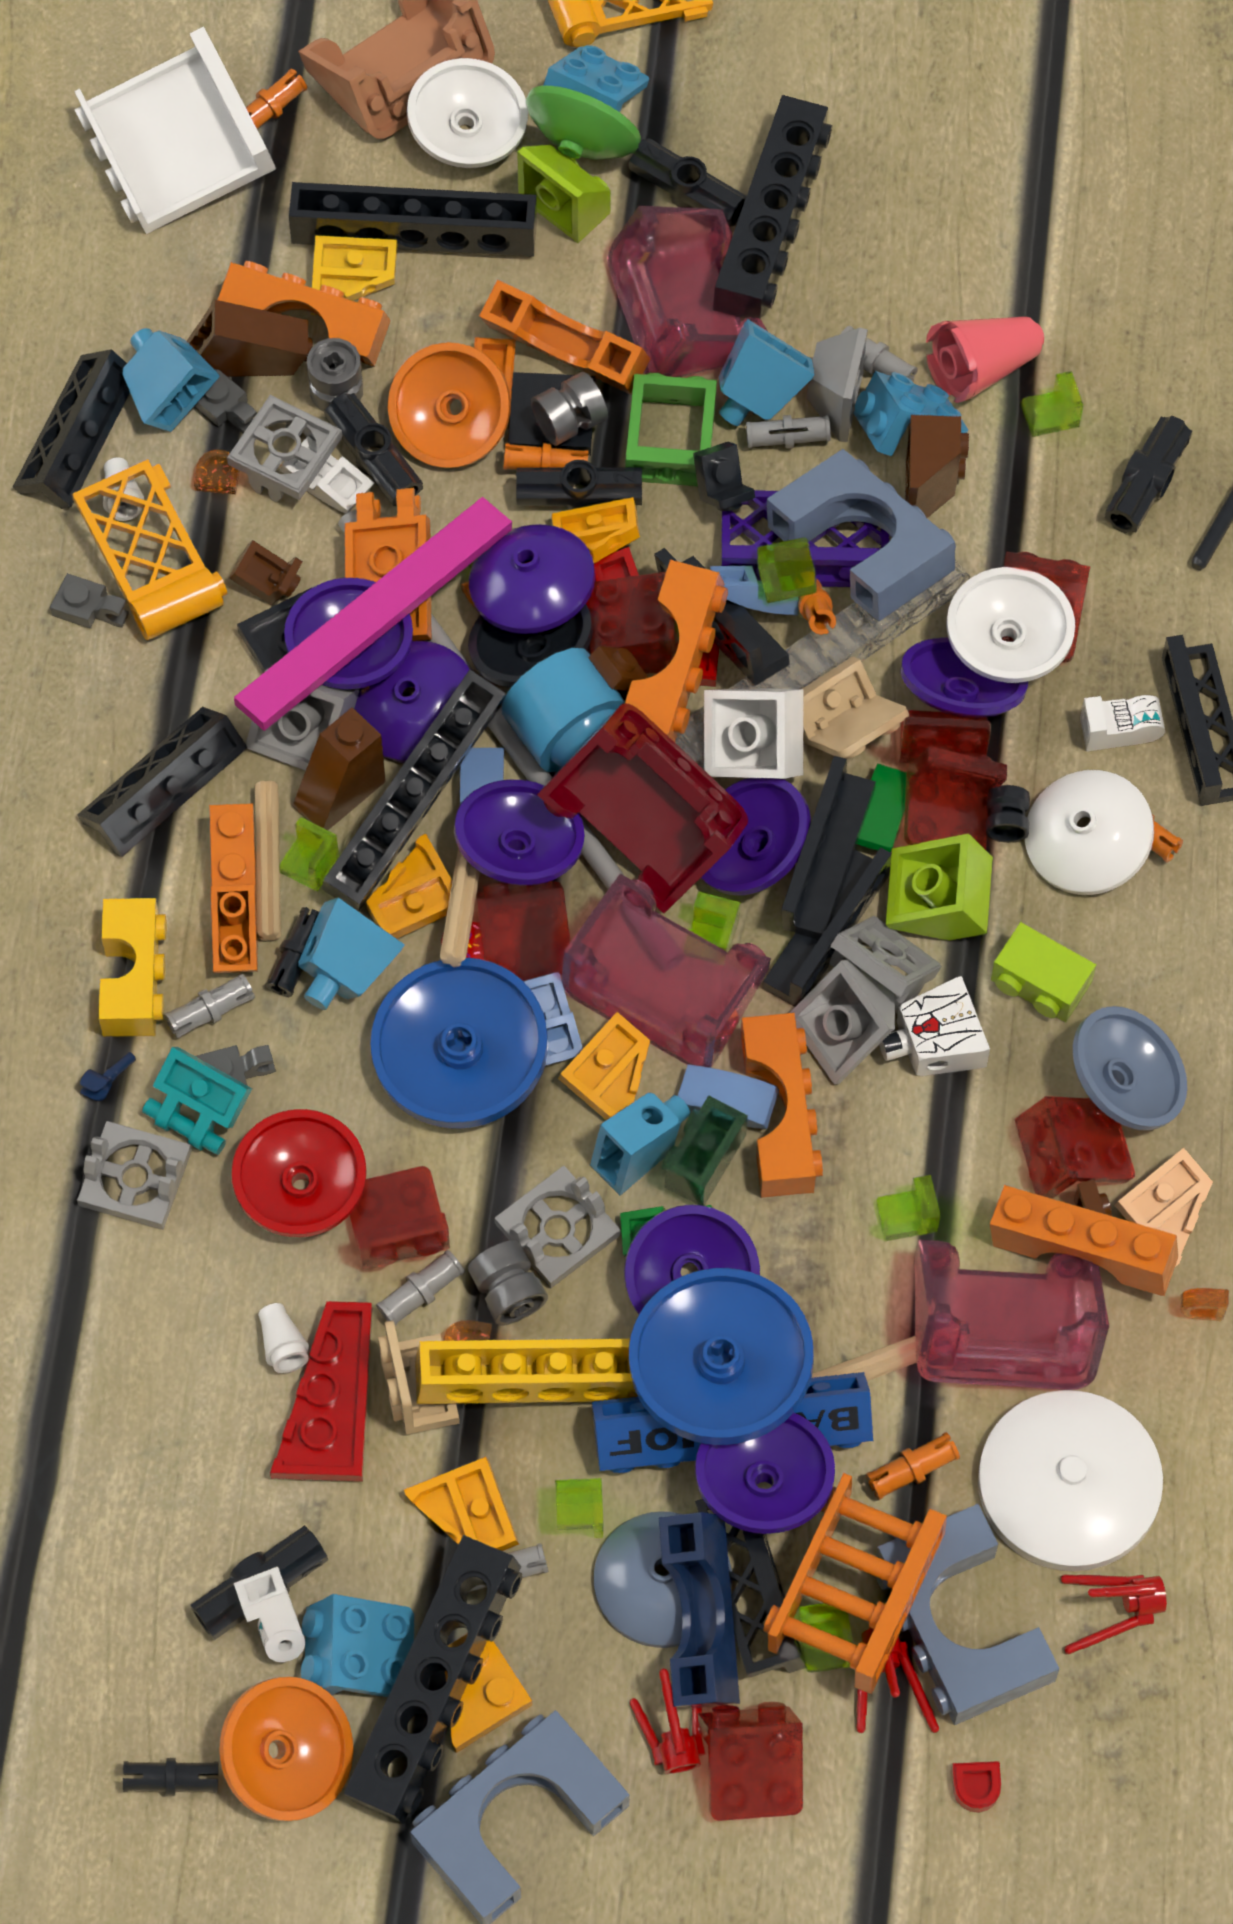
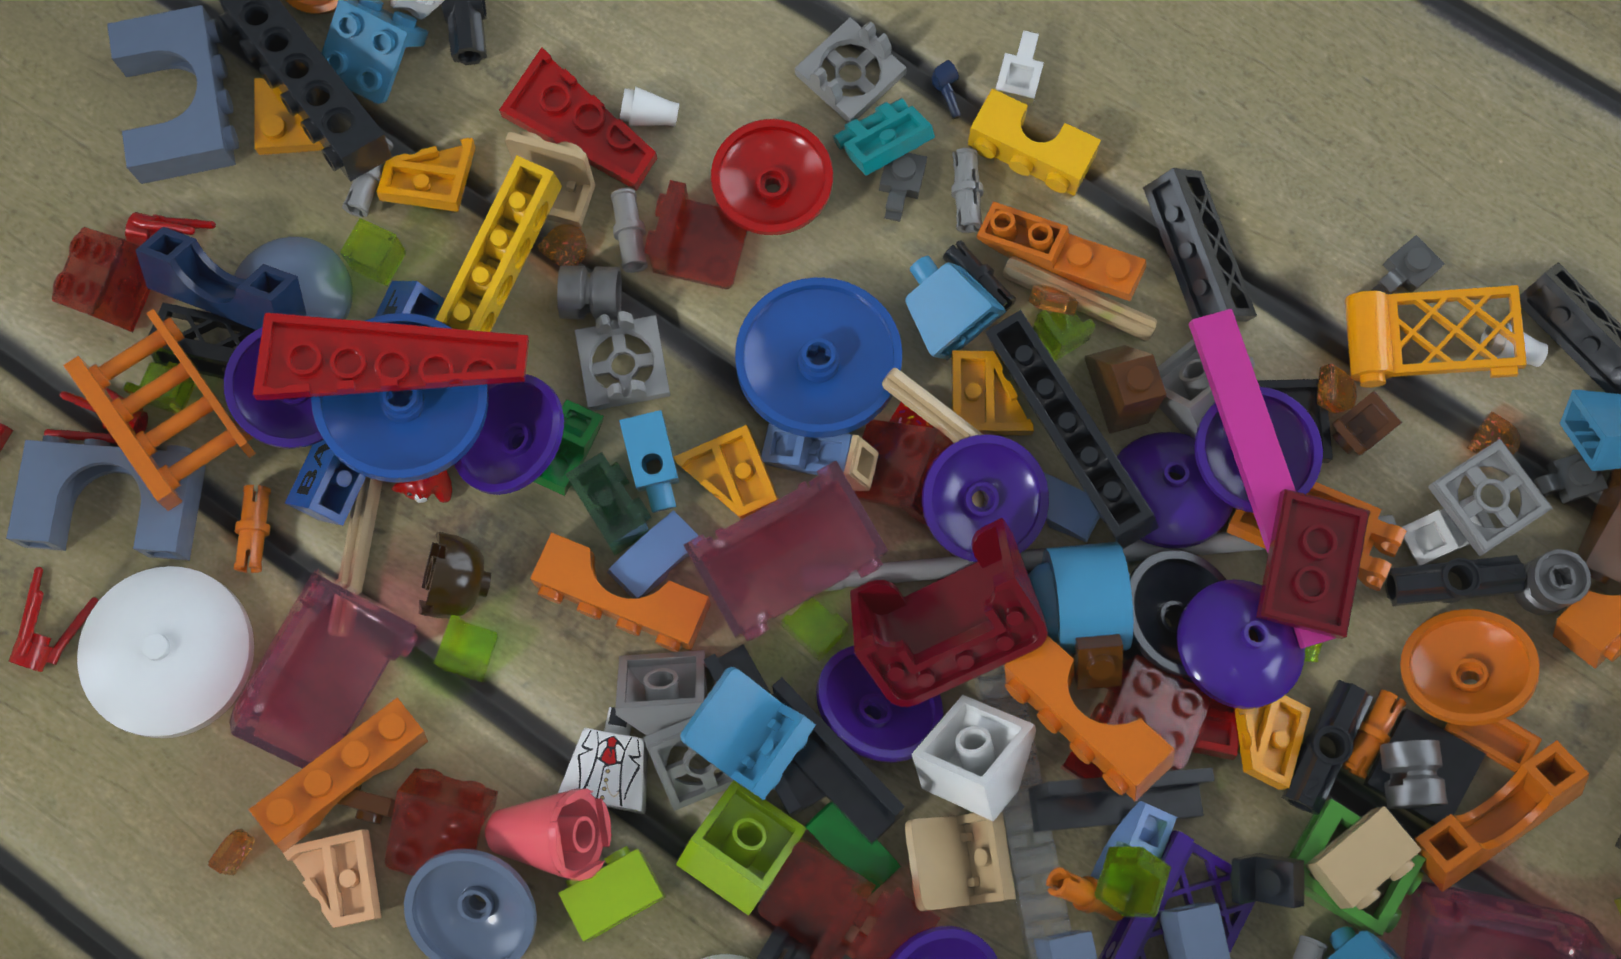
camera: 120 degrees right, 10 degrees up
(61, 1014) = (1021, 73): none -> white plate
(244, 609) = (1335, 389): none -> clear orange tile
(291, 869) = (1053, 299): none -> clear orange tile
(436, 541) = (1313, 564): none -> dark red tile
(545, 957) = (860, 464): none -> tan slope
(666, 410) = (1364, 859): none -> tan brick
(717, 1405) = (345, 356): none -> red wing
(848, 898) = (746, 732): none -> dark azure bracket
(855, 1253) = (453, 577): none -> dark brown cylinder
(1026, 1036) = (554, 833): none -> coral cone

